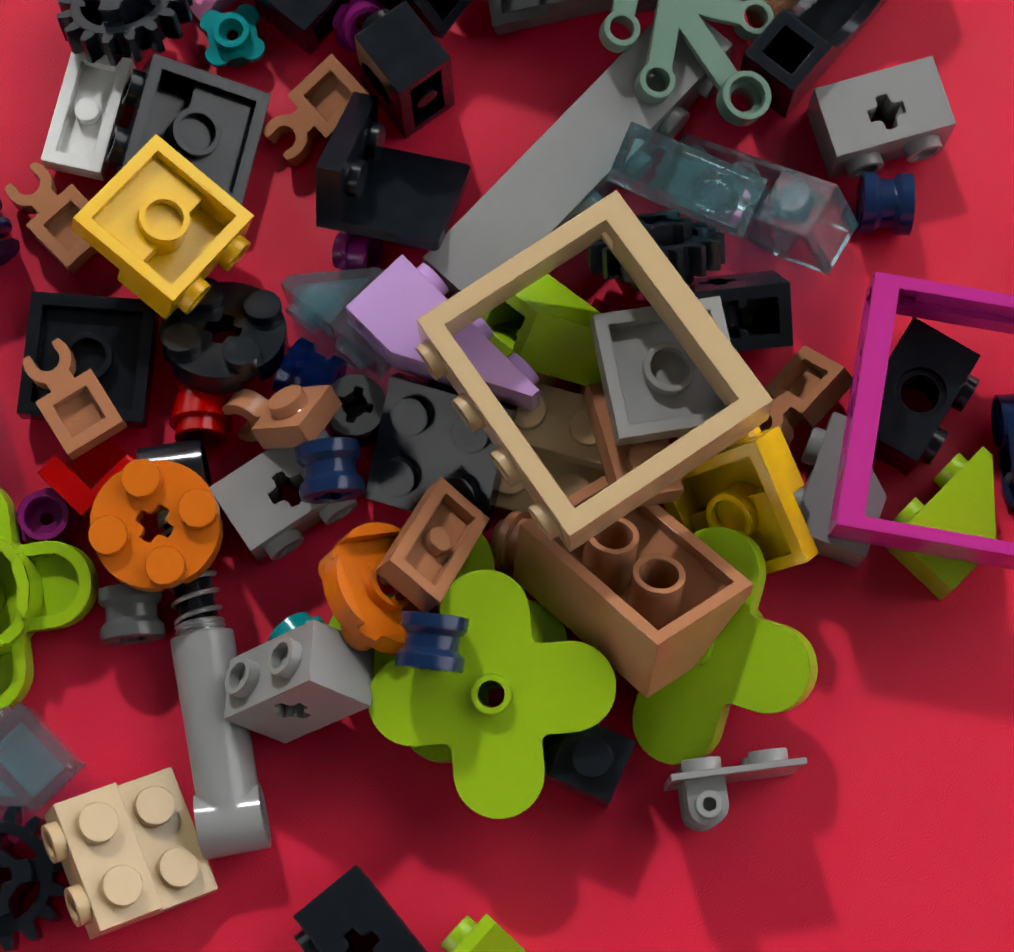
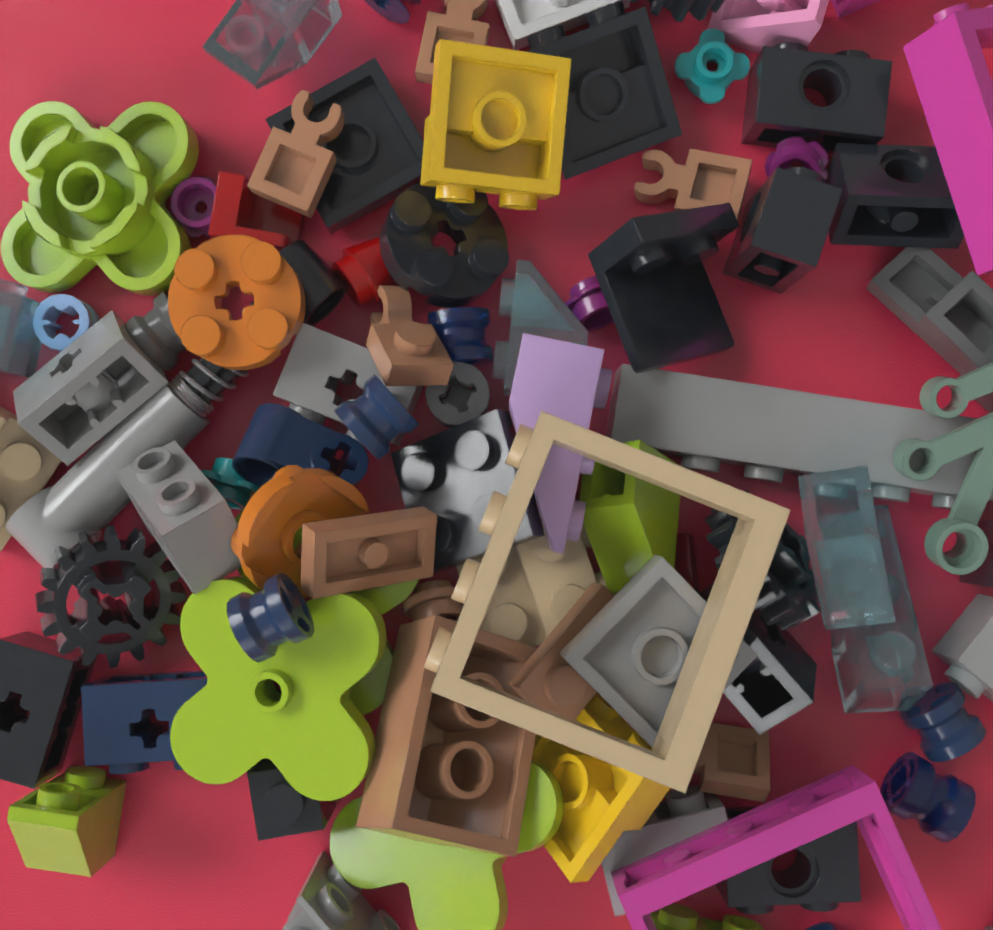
camera: 55 degrees right, 10 degrees up
(78, 709) = (49, 311): none -> light blue bush
(135, 701) = (87, 389): none -> light grey brick
(289, 567) = (284, 437): none -> dark blue piece
(313, 826) = (109, 624): none -> black gear
(419, 855) = (119, 719): none -> dark blue brick
(940, 252) = (936, 801): none -> clear blue wheel

